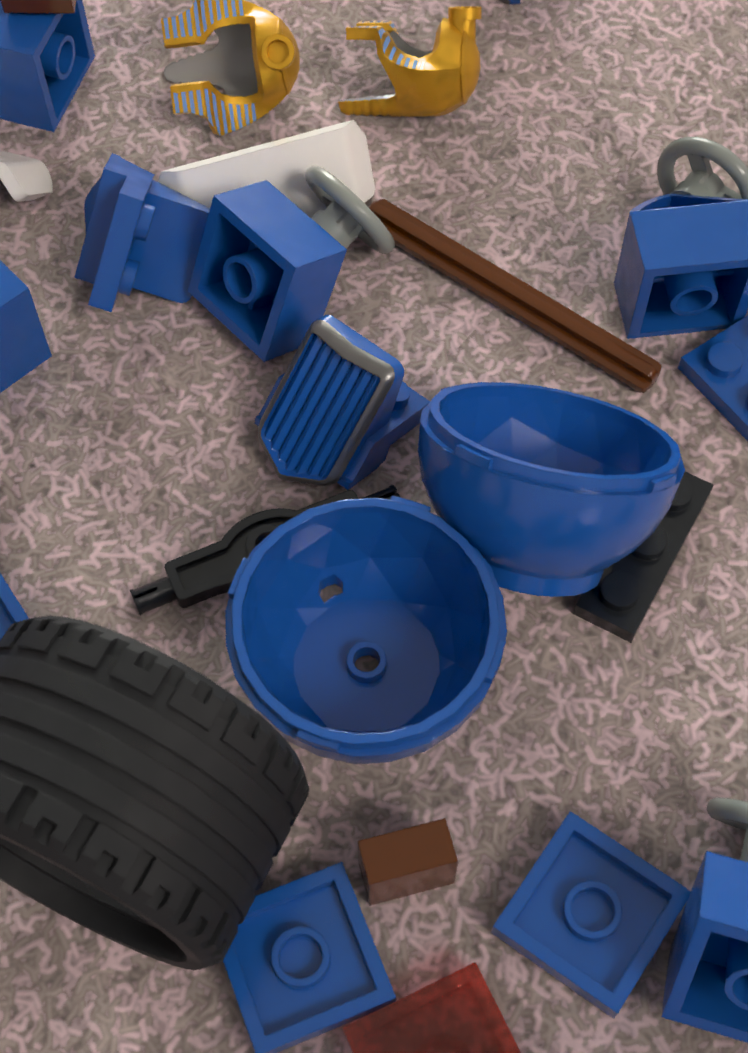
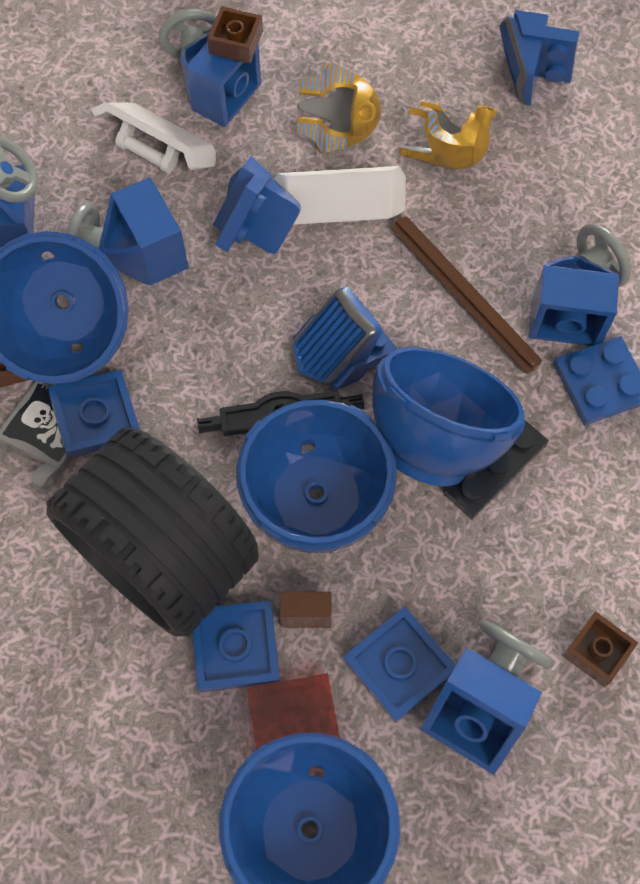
camera: 15 degrees right, 5 degrees up
(272, 266) = (327, 247): blue piece -> none

